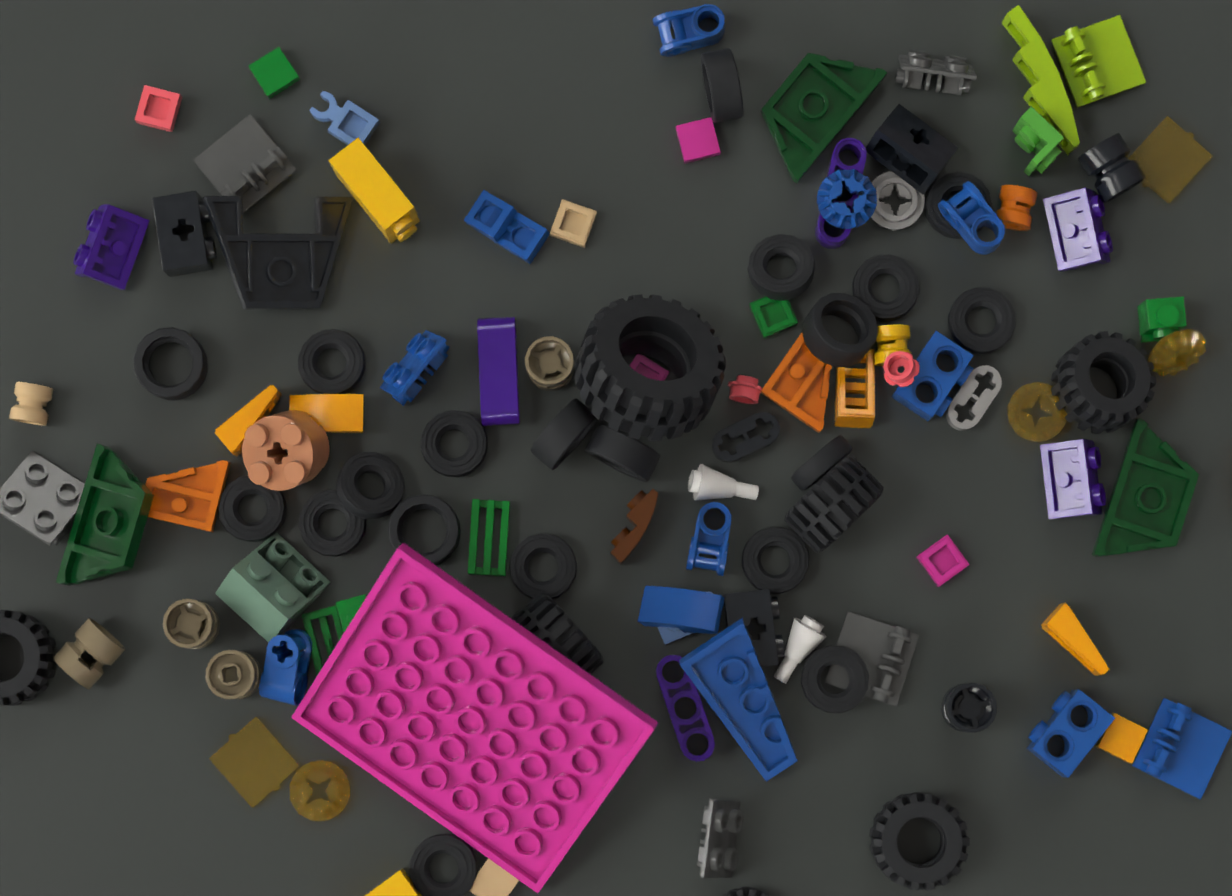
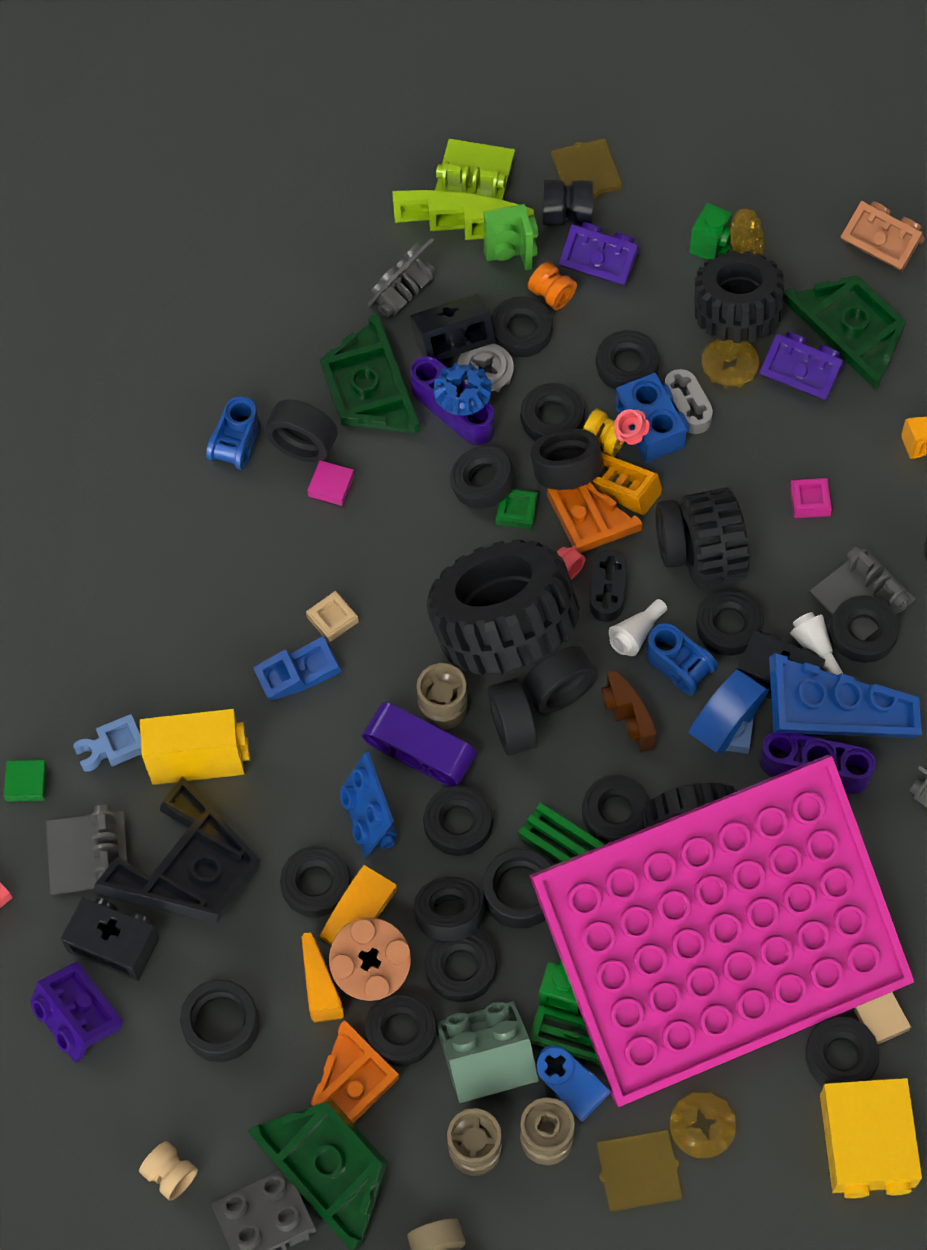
camera: 55 degrees left, 20 degrees down
(971, 216) = (542, 312): blue piece -> none

